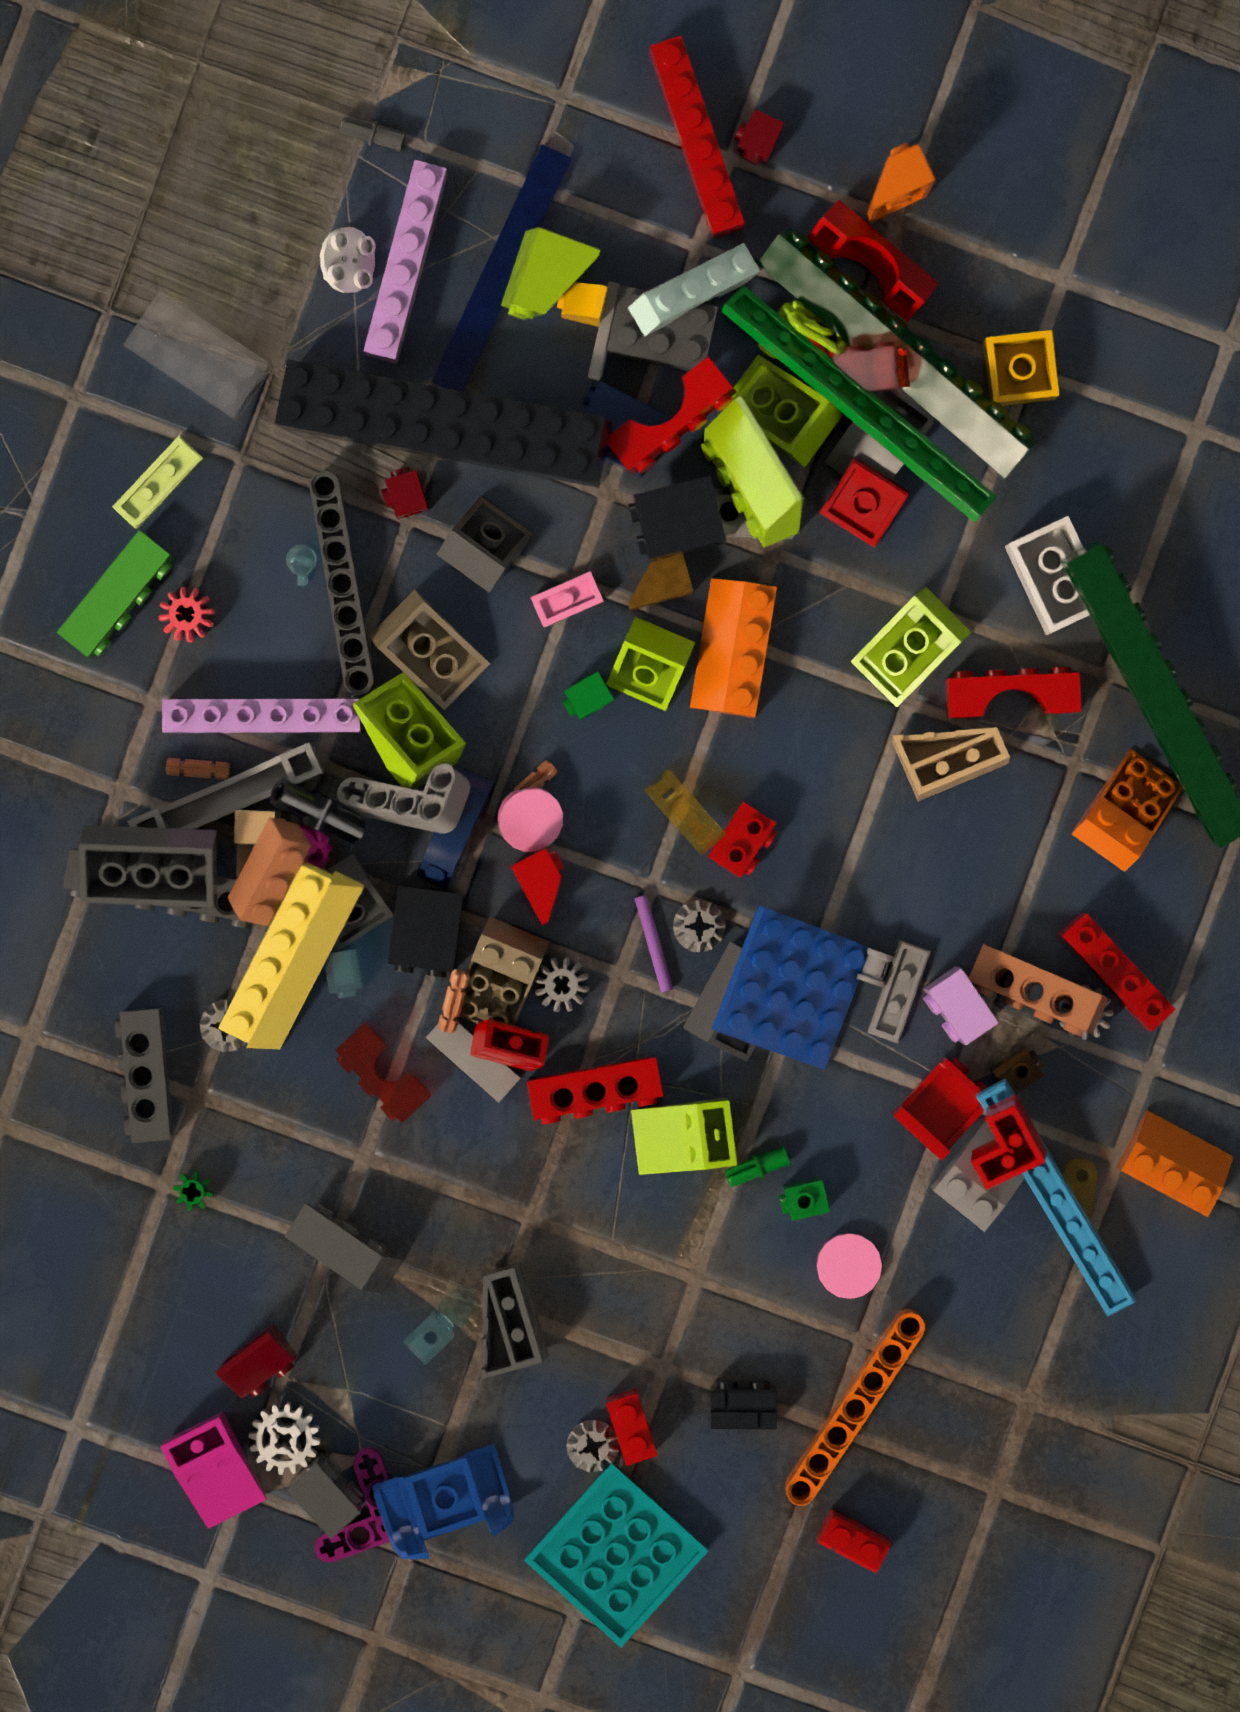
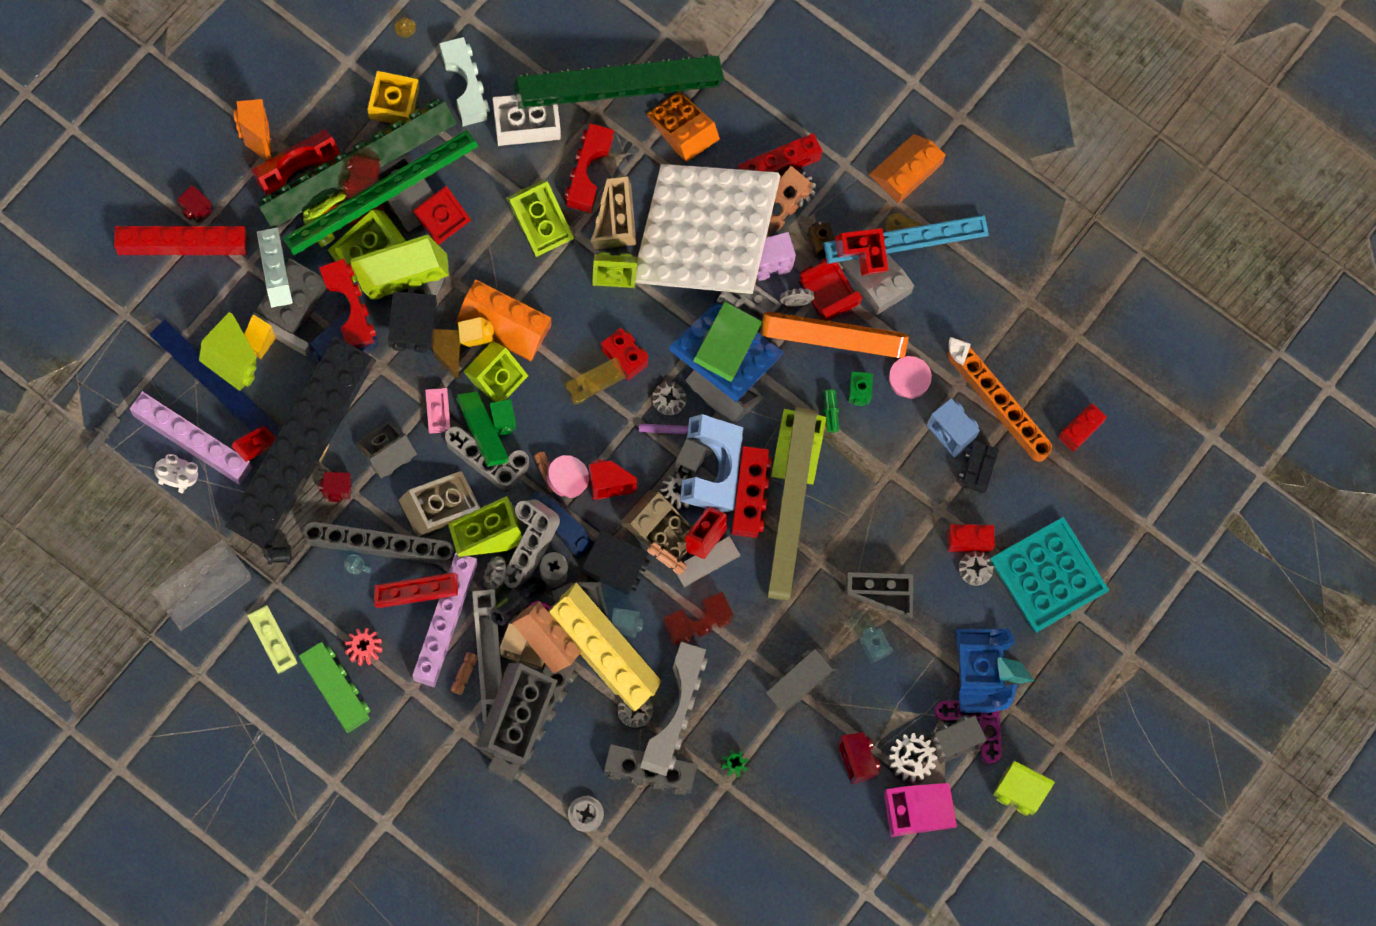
camera: 80 degrees left, 15 degrees down
(45, 1016) = (581, 804): none -> light grey gear
(279, 449) = (279, 555): none -> black bush
(284, 1607) = (1022, 788): none -> lime slope
(287, 661) = (416, 590): none -> red tile
(306, 1081) = (660, 748): none -> light grey arch
(351, 763) = (495, 573): none -> light grey gear
(371, 855) = (551, 577): none -> dark grey piece
(423, 357) = (254, 443): none -> red plate
(452, 1545) = (1013, 671): none -> teal slope
(521, 688) = (477, 461): none -> light grey beam
(556, 673) = (482, 429): none -> green tile
(580, 1047) = (726, 442): none -> light blue arch
(593, 1155) = (792, 504): none -> olive beam
(611, 988) = (690, 458): none -> dark grey brick
(698, 614) = (475, 332): none -> yellow brick
(786, 1354) = (953, 427): none -> medium blue brick
(801, 987) = (727, 341): none -> bright green tile
(866, 783) = (614, 270): none -> lime slope
(873, 1136) = (834, 334): none -> orange beam
(906, 1327) = (958, 350): none -> white tile
(911, 1064) = (796, 297): none -> light grey gear
(969, 899) = (707, 228): none -> white plate
(1120, 438) = (457, 58): none -> light aqua arch
(1143, 345) = (405, 27): none -> clear yellow plate

